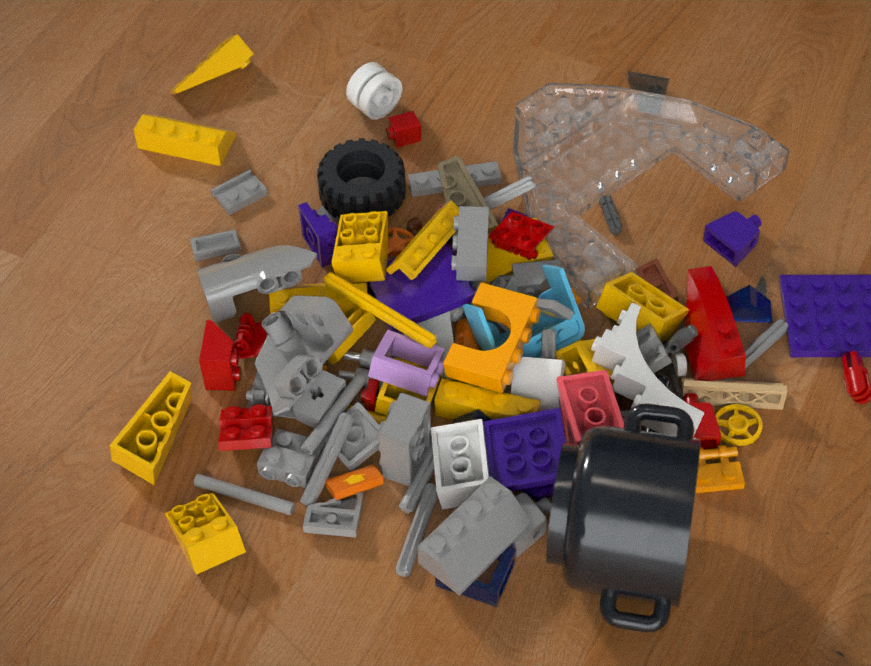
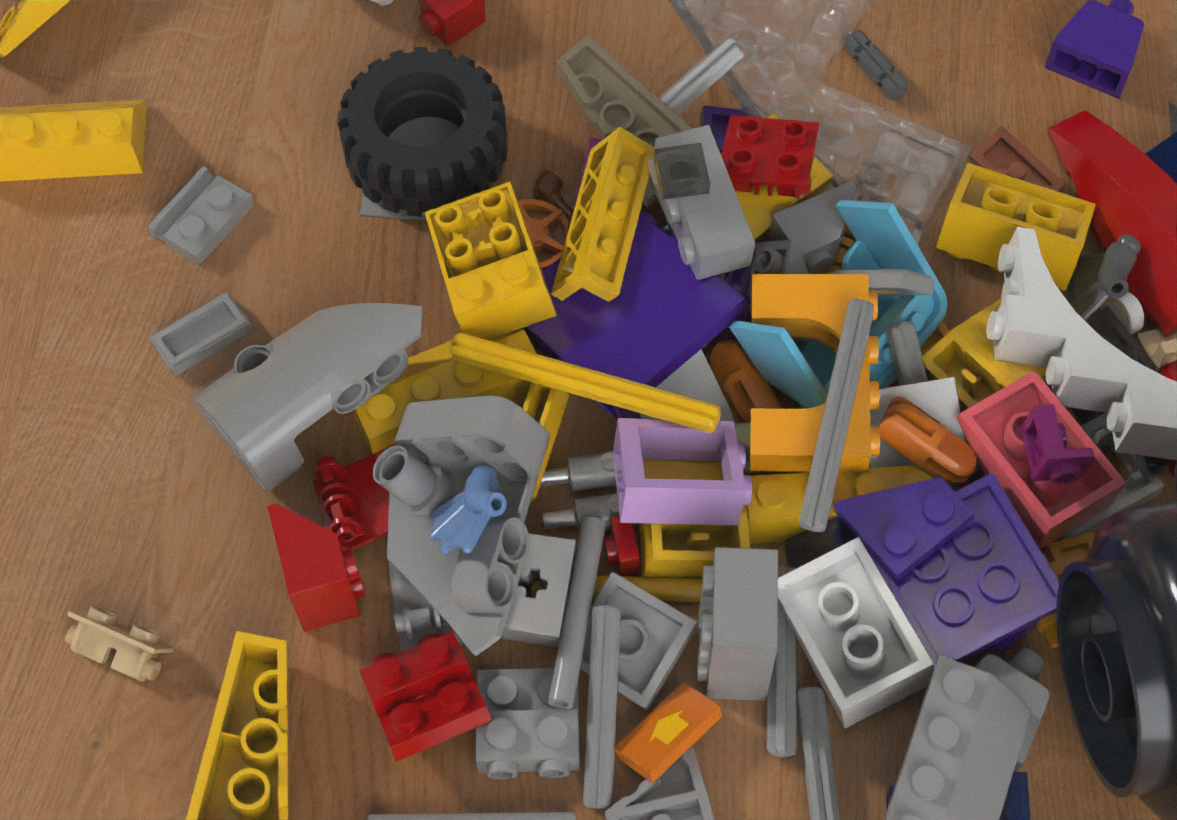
camera: 20 degrees left, 10 degrees up
(124, 371) = (135, 647): none -> tan hinge
(305, 345) = (464, 517): none -> medium blue arm
(318, 233) = (393, 260): dark purple plate -> none
(430, 183) = (546, 92): light grey plate -> none
(462, 222) = (681, 171): none -> clear smoke plate
(490, 356) = (836, 416): none -> light grey axle
(507, 417) = (905, 522): none -> dark purple wing
(536, 386) = (926, 442): none -> orange arm
(591, 408) = (1046, 448): none -> magenta bracket
(652, 348) = (1086, 299): light grey slope -> none

